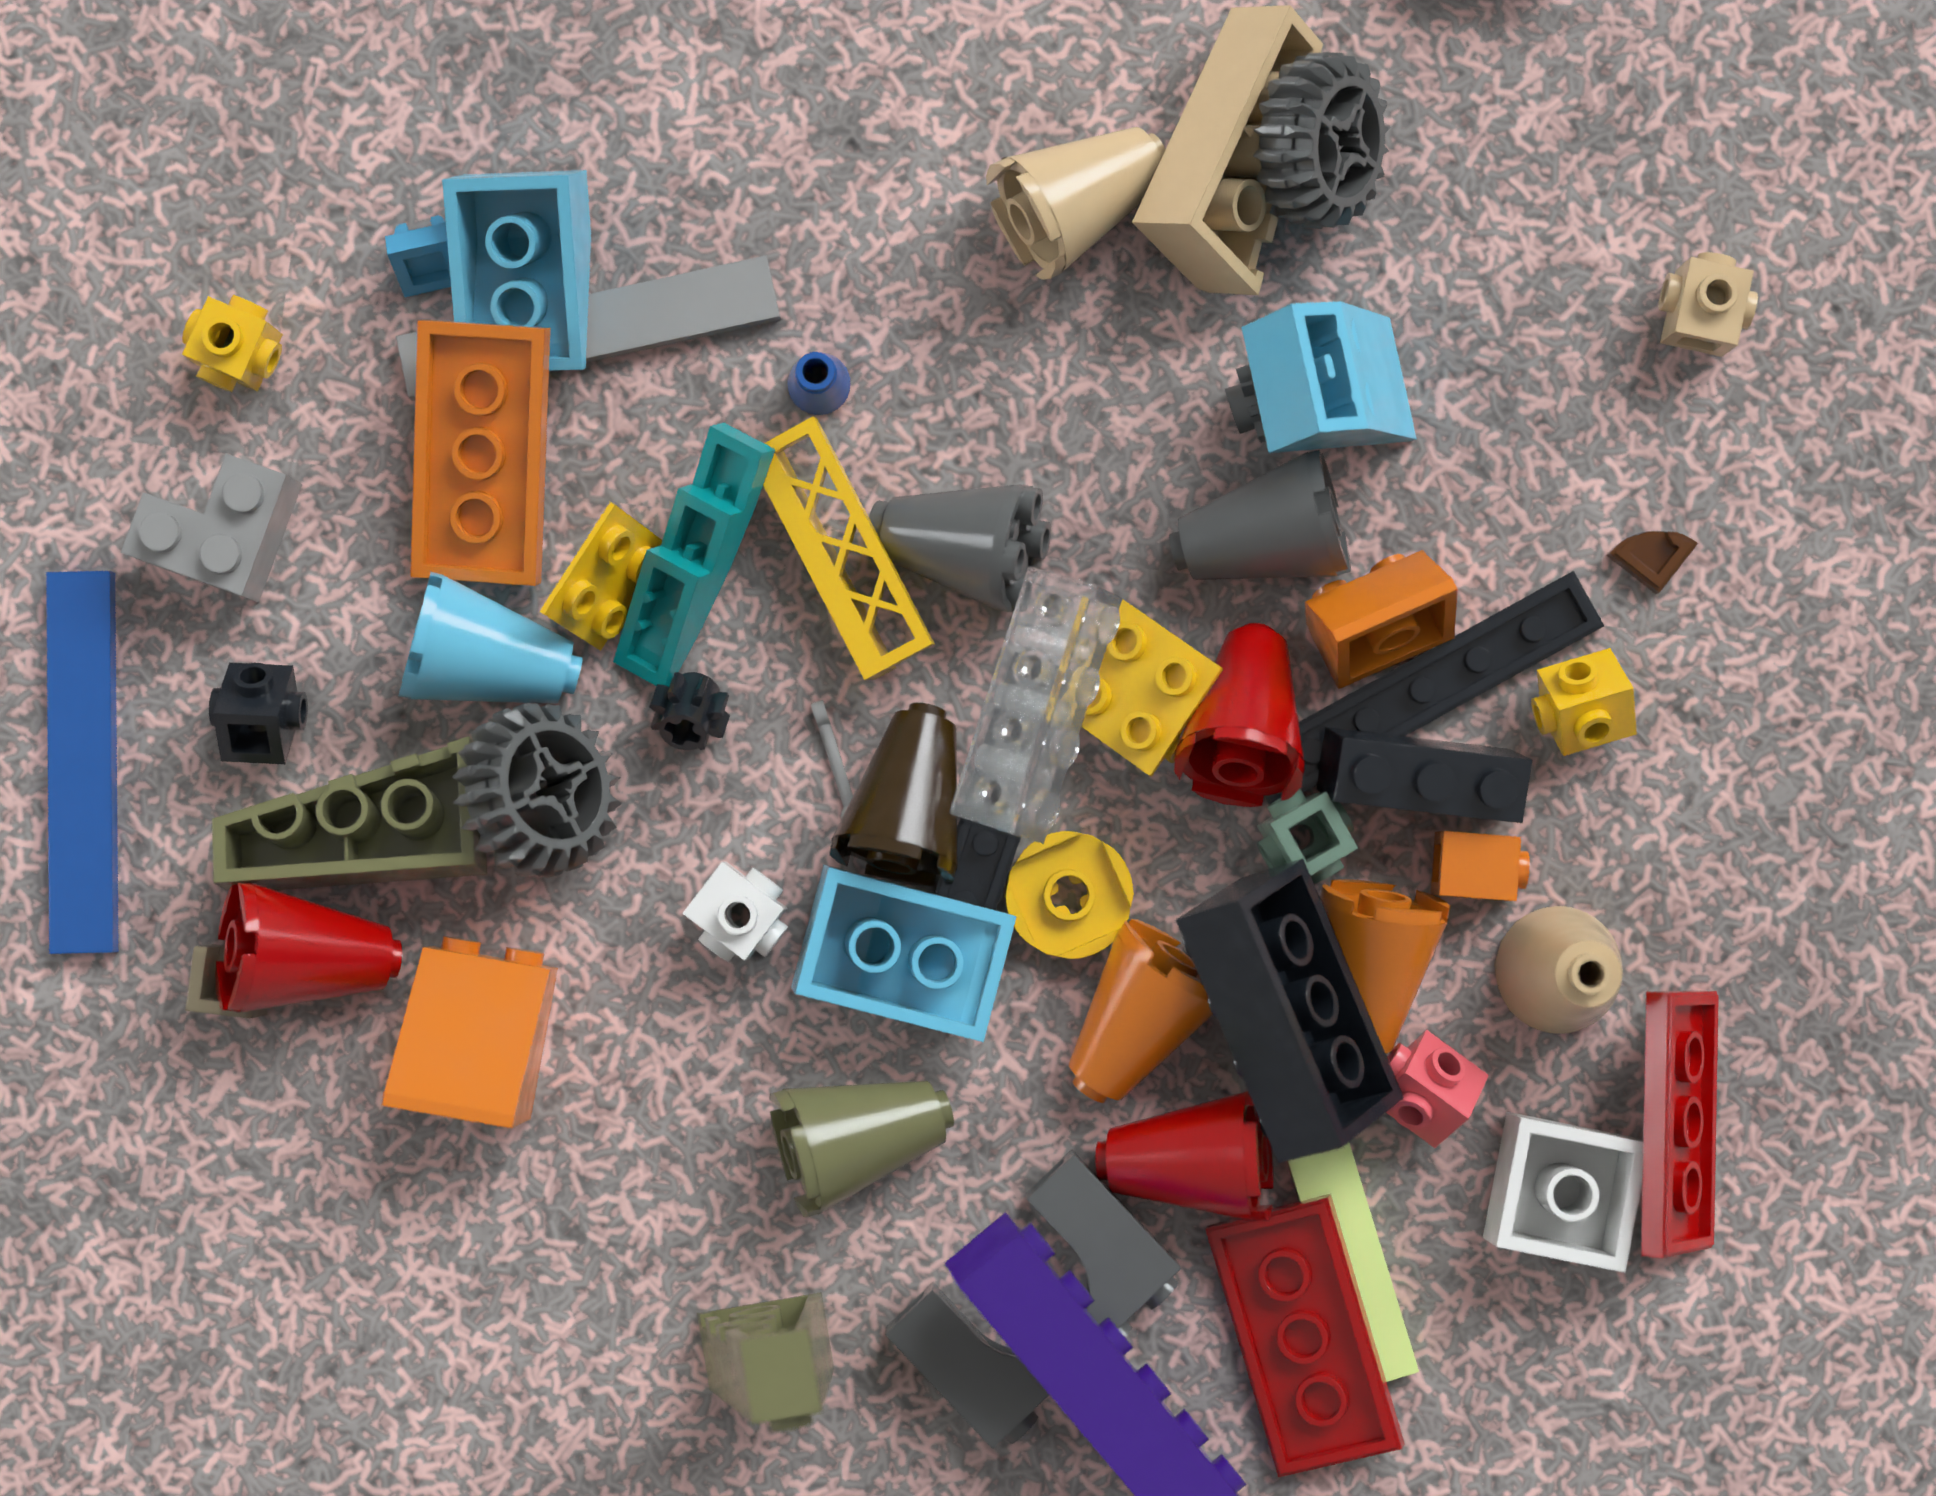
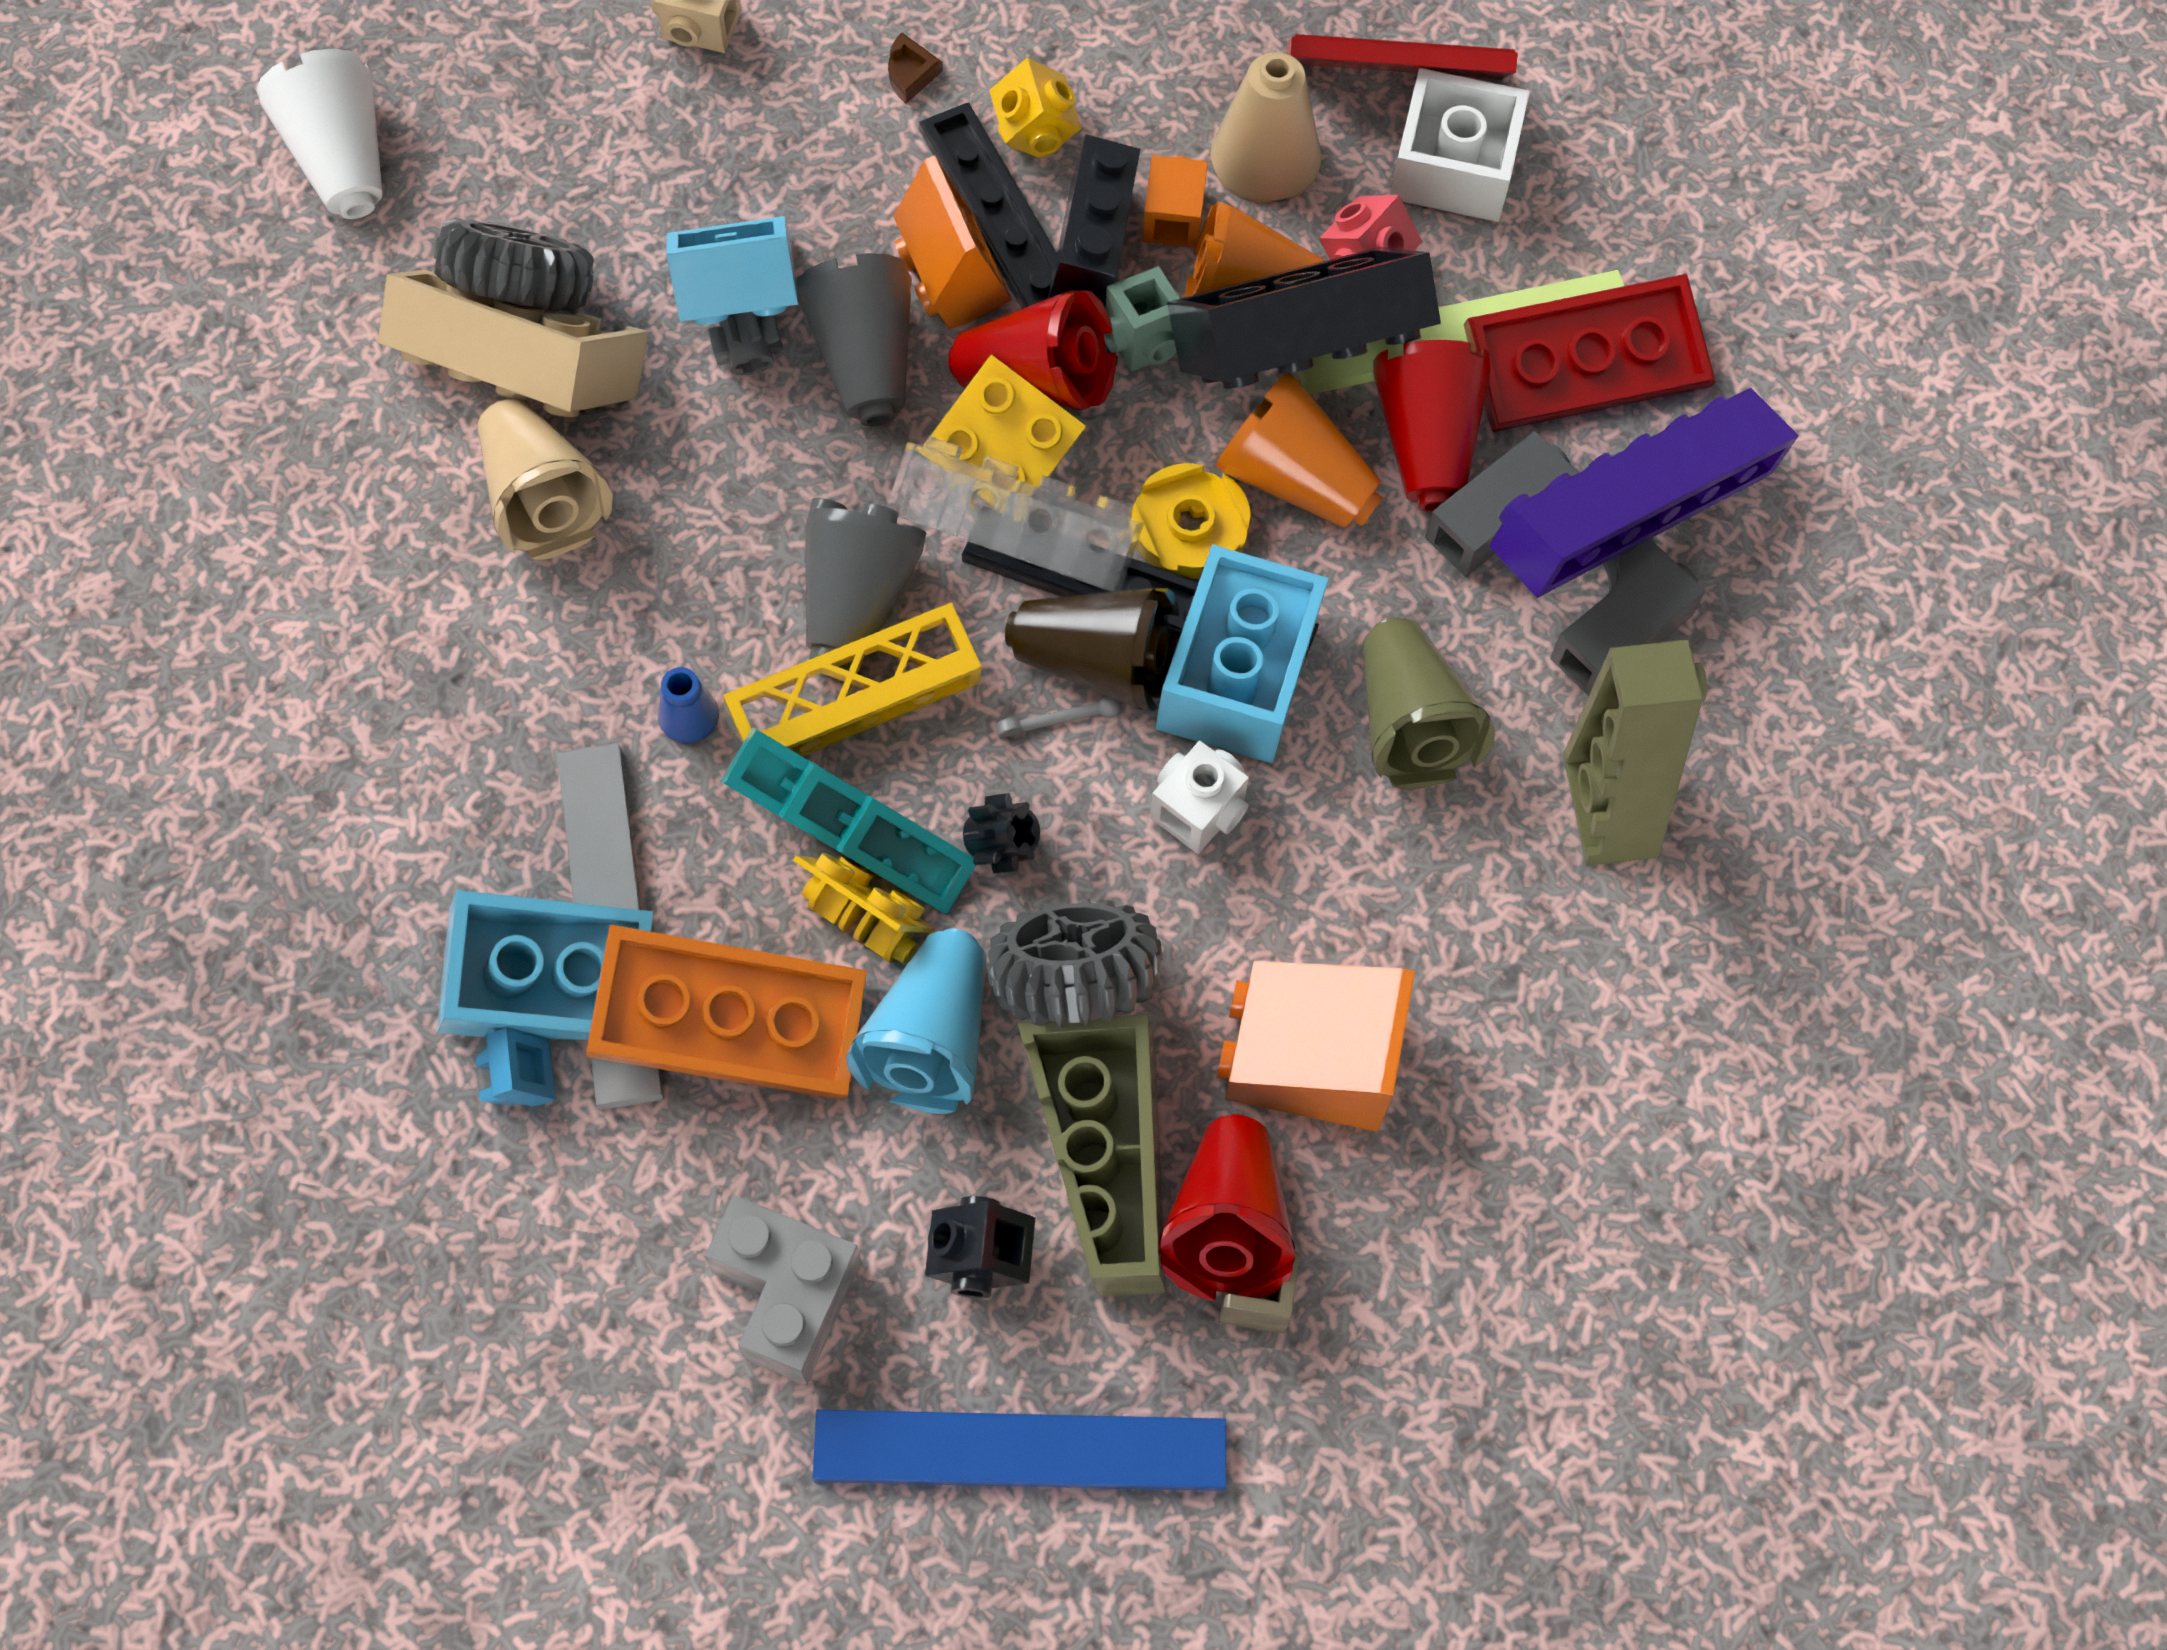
camera: 90 degrees left, 20 degrees down
(249, 356) = (599, 1279): yellow brick -> none

